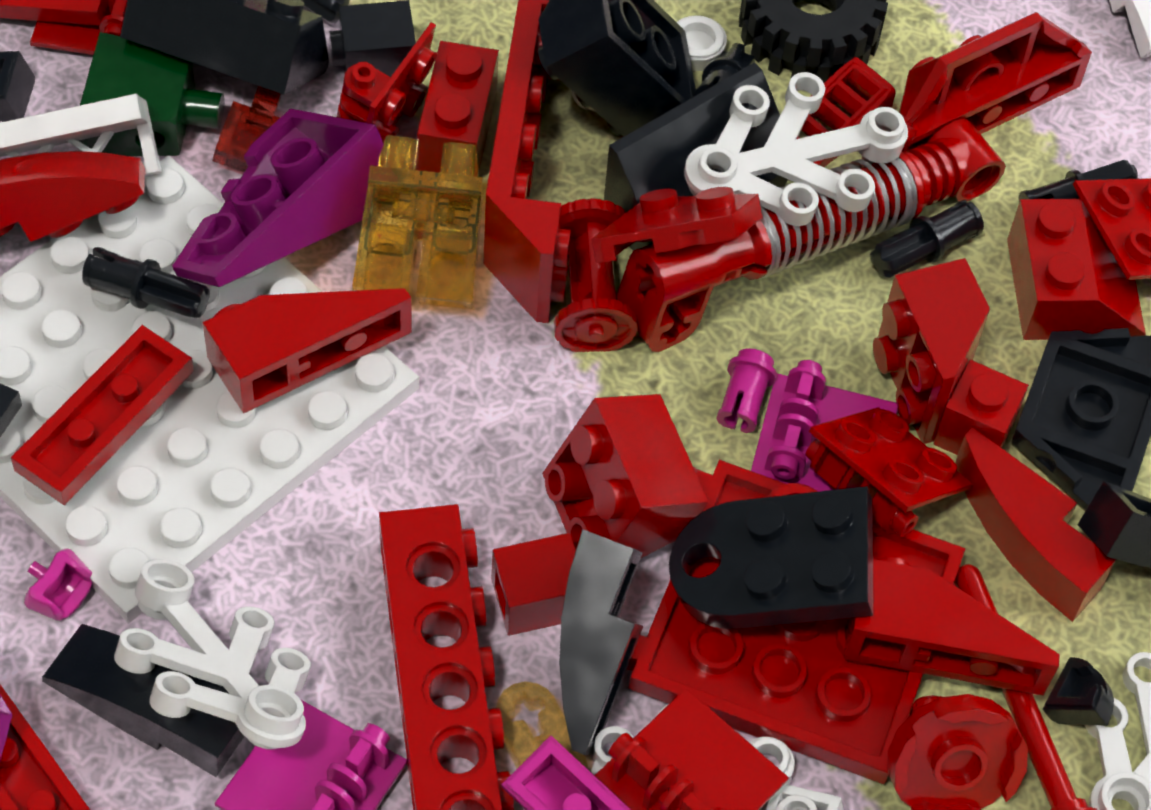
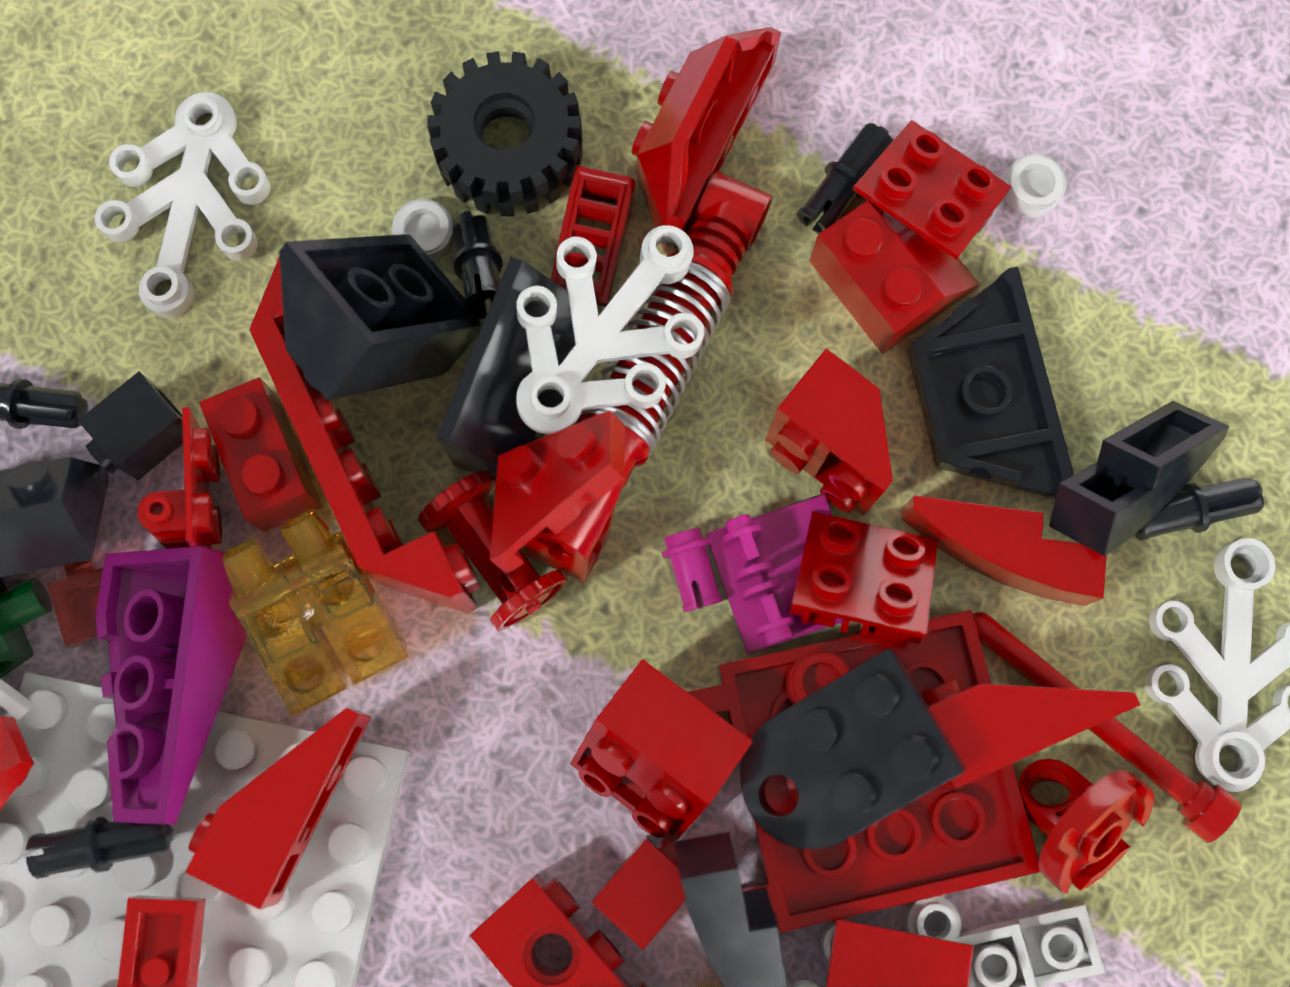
camera: 30 degrees left, 20 degrees up
(927, 239) = (749, 311): black axle -> none
(981, 401) = (916, 466): red brick -> none
(1080, 696) = (1146, 676): black tile -> none

